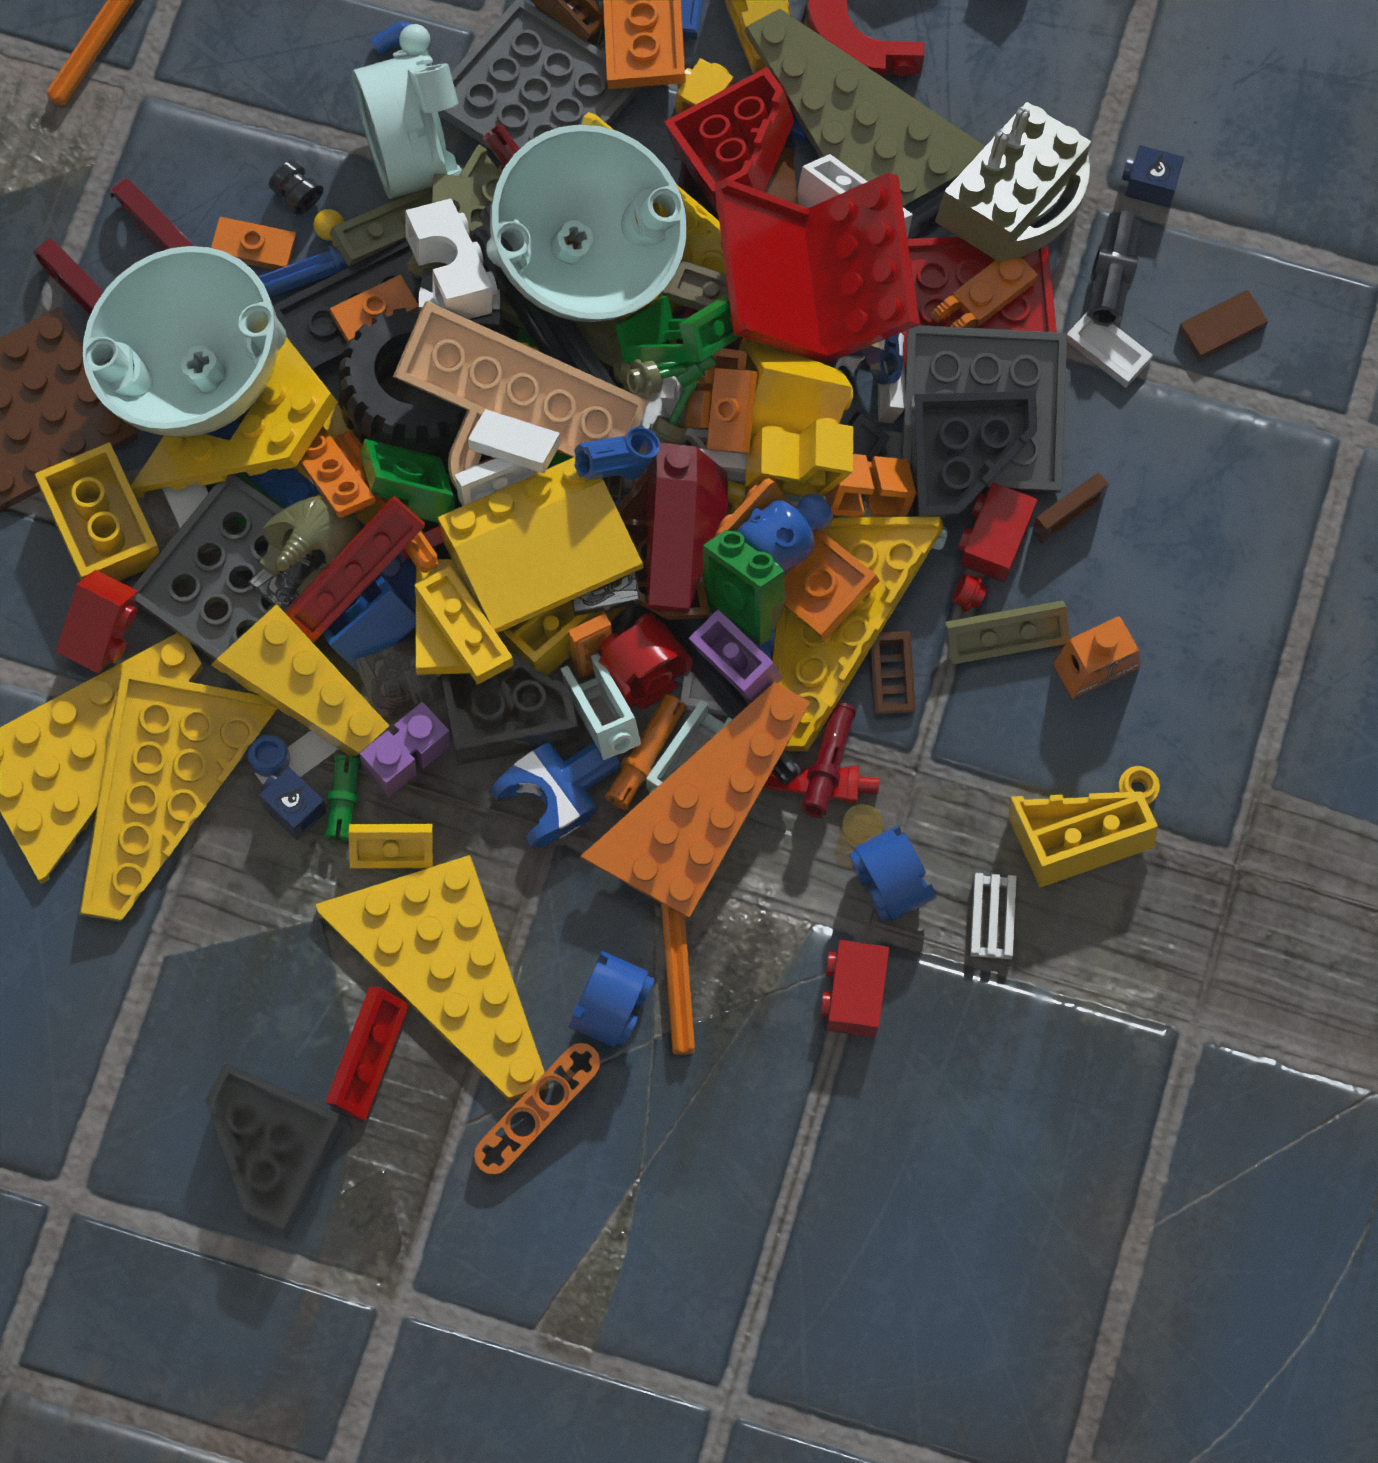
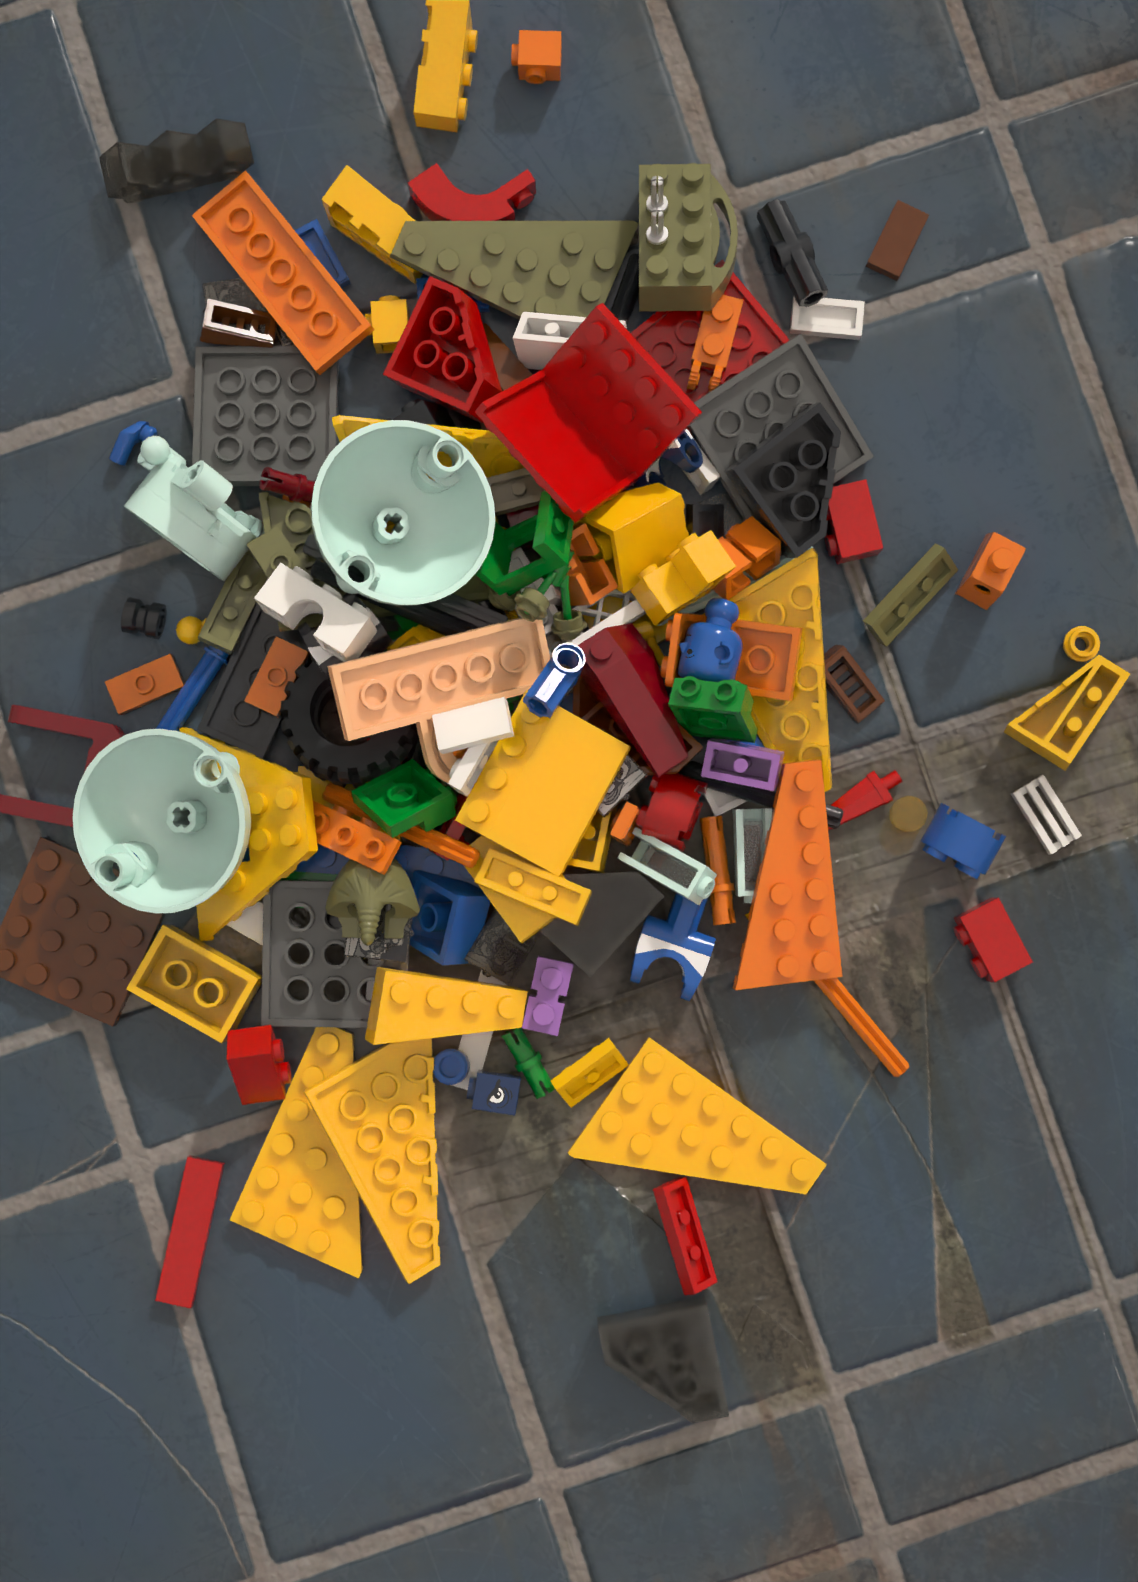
camera: 30 degrees left, 15 degrees up
(354, 568) = (420, 899): red tile -> none
(541, 1112) = (827, 1189): orange beam -> none
(609, 1000) = (831, 1078): blue brick -> none
(731, 410) = (608, 577): orange plate -> none
(824, 774) = (859, 799): dark red pin -> none
(969, 592) = (861, 583): red plate -> none
(1070, 507) = (889, 465): reddish brown tile -> none
(1152, 175) = (767, 156): dark blue brick -> none

